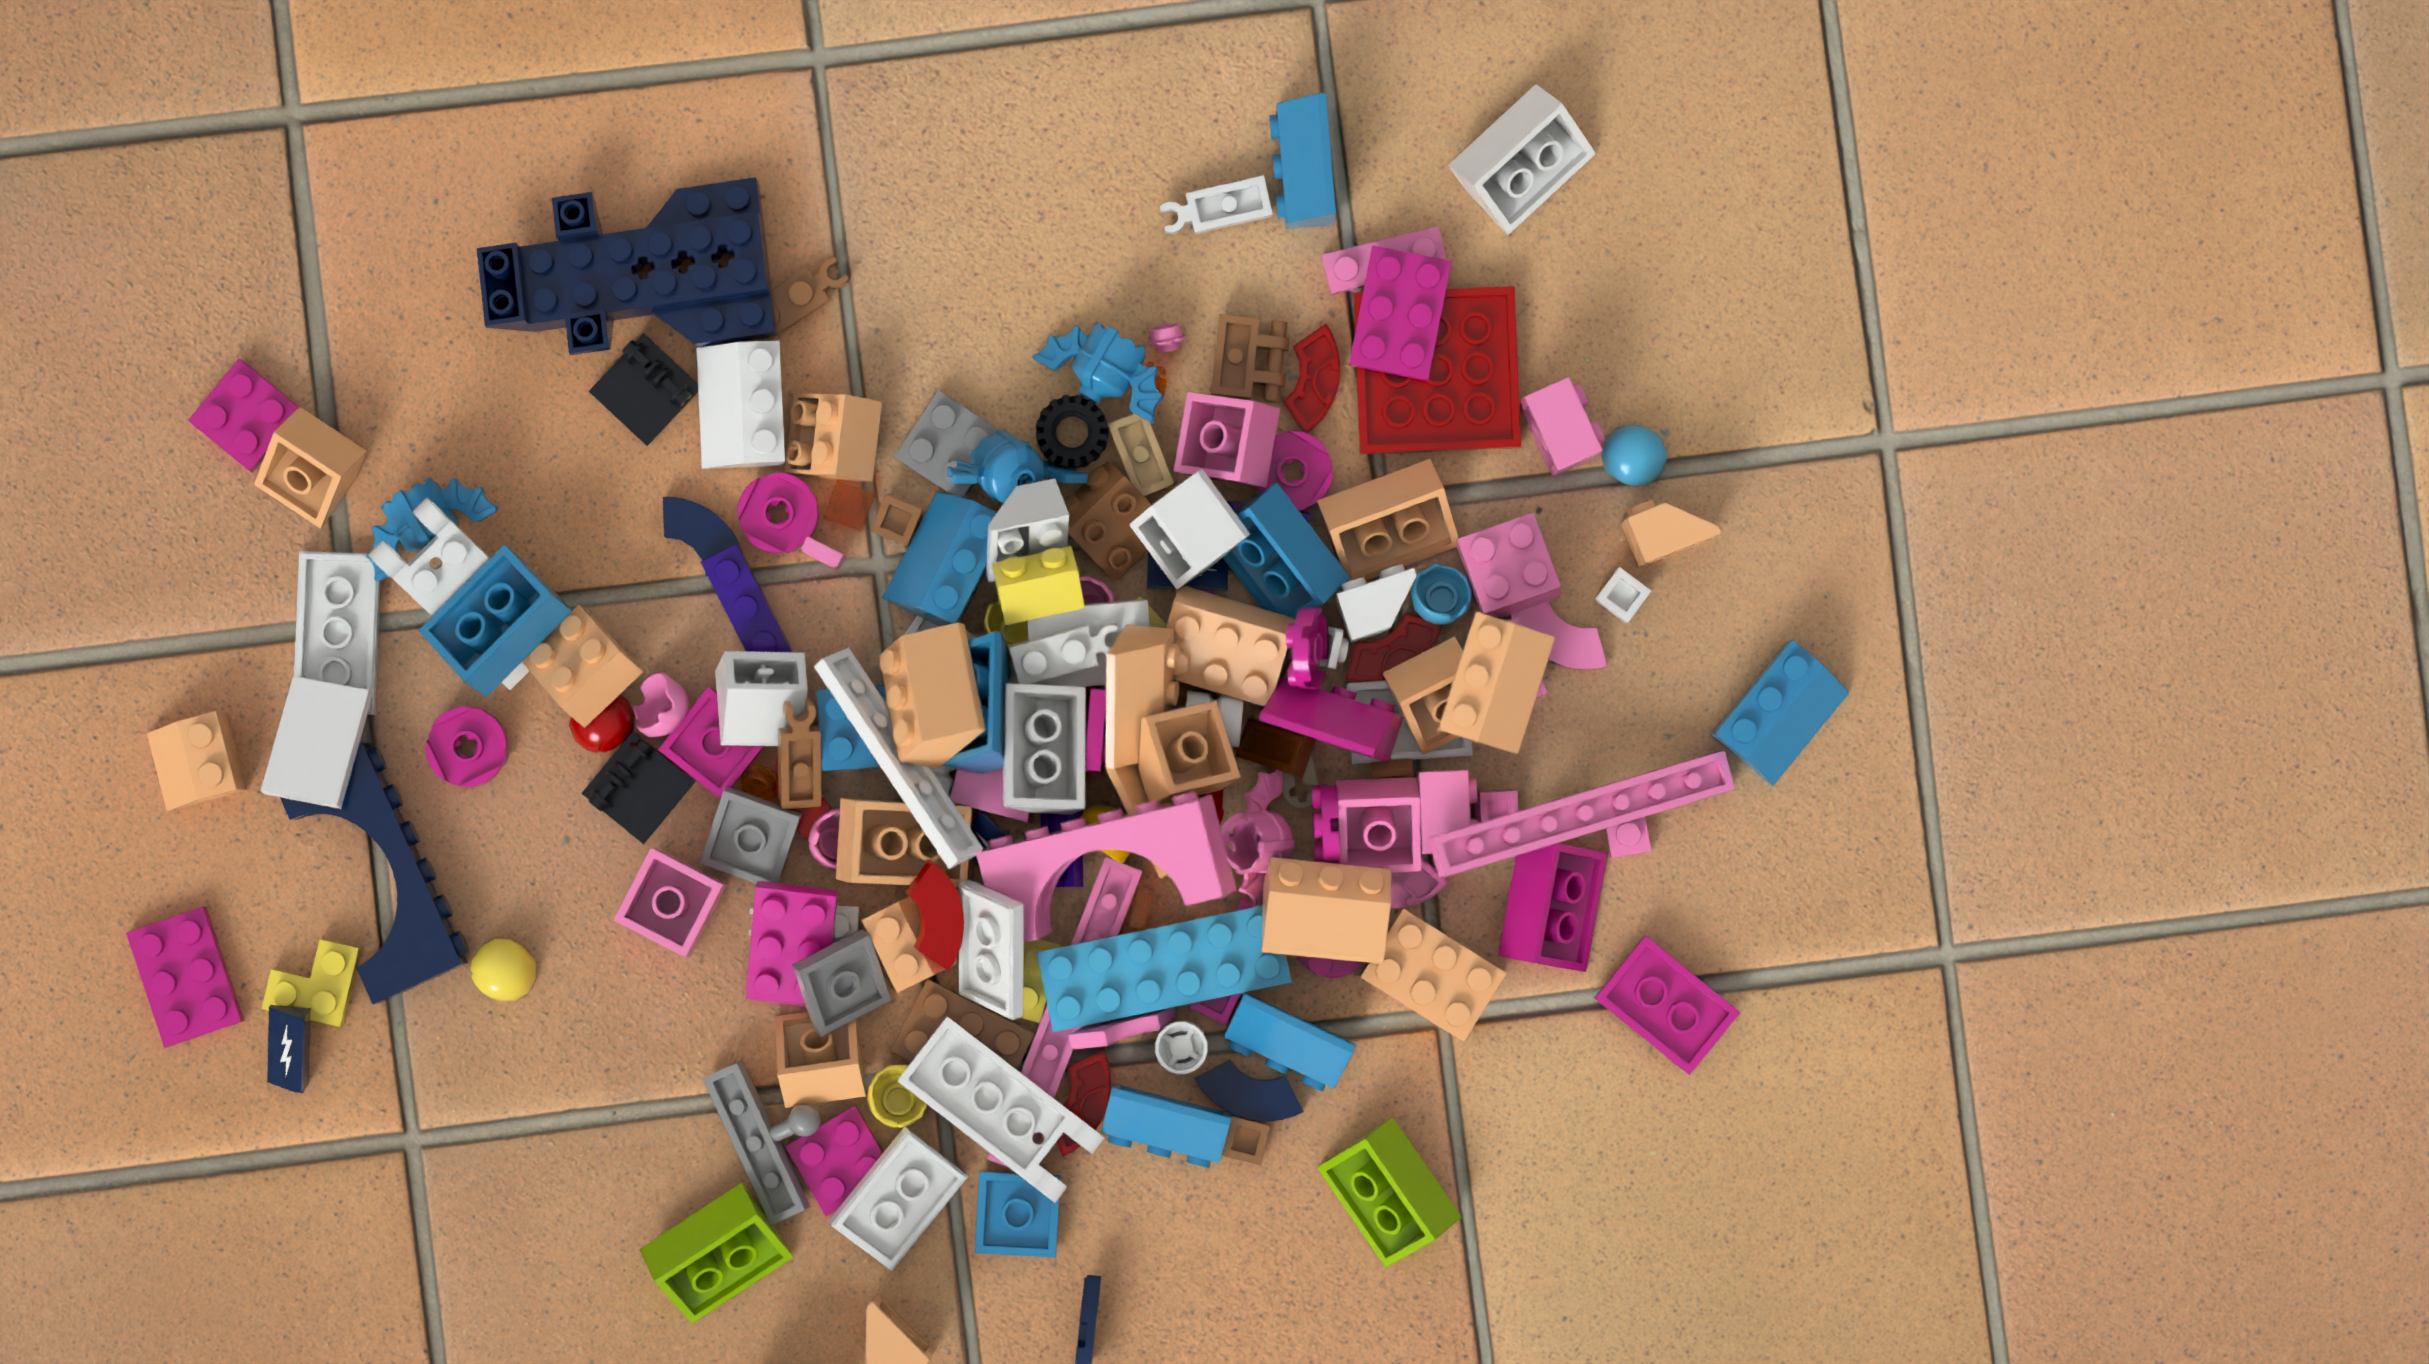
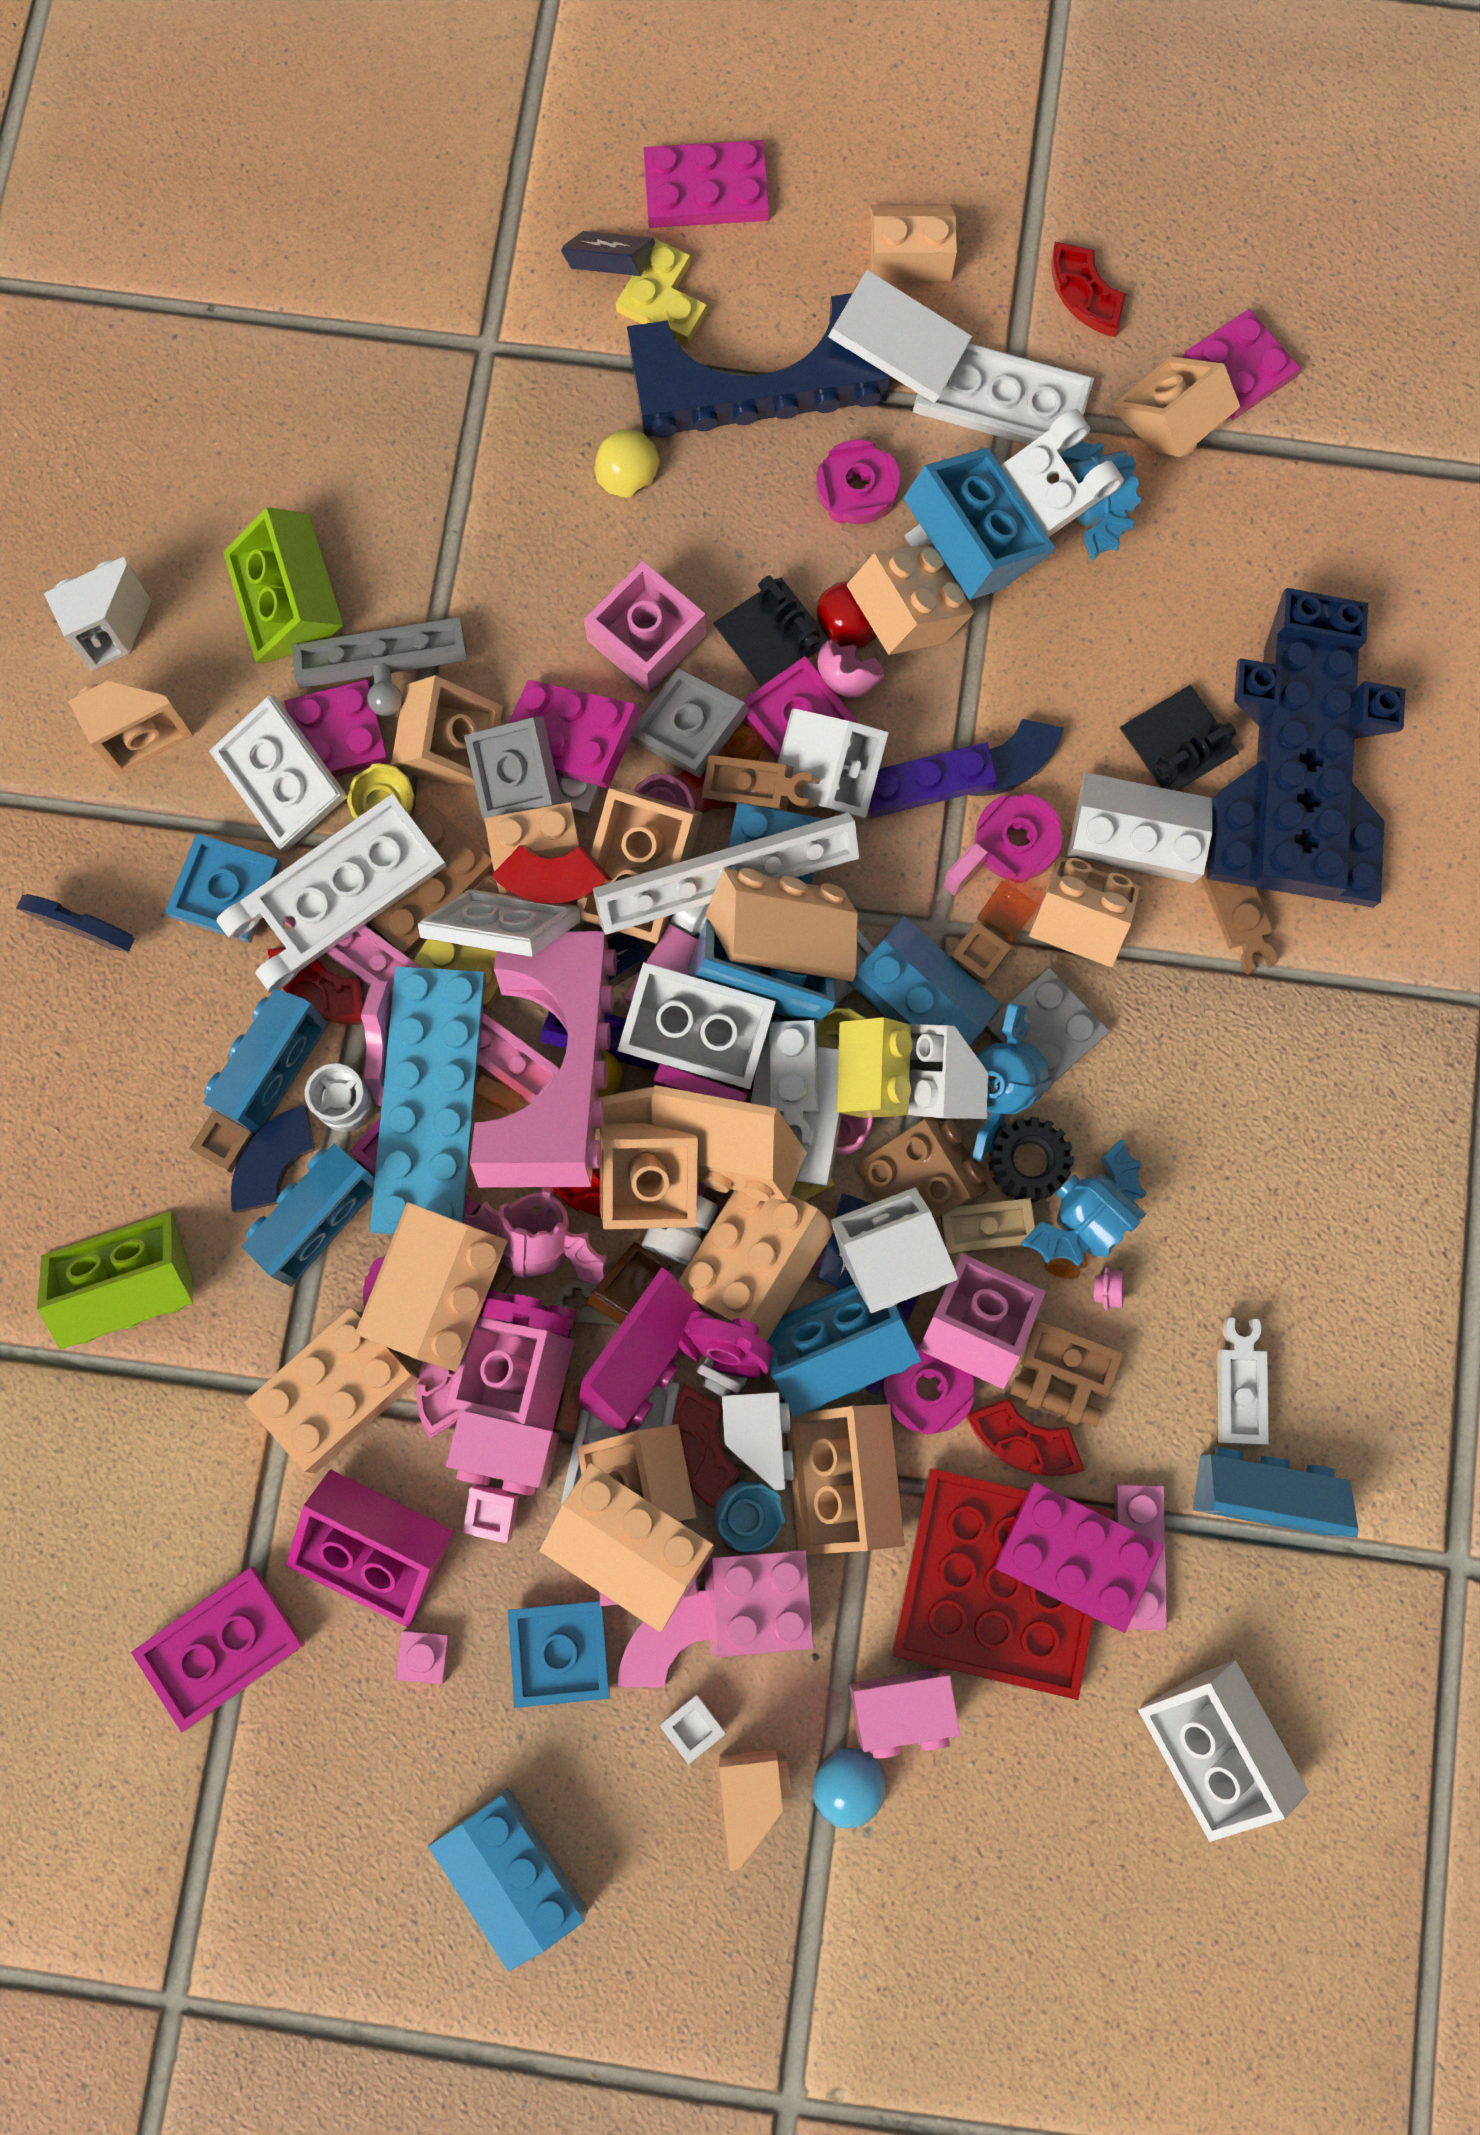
camera: 105 degrees right, 10 degrees down
(204, 583) = (1084, 290): none -> red tile
(1581, 813) = (454, 1608): bright pink plate -> none
(1593, 721) = (558, 1654): none -> dark azure plate

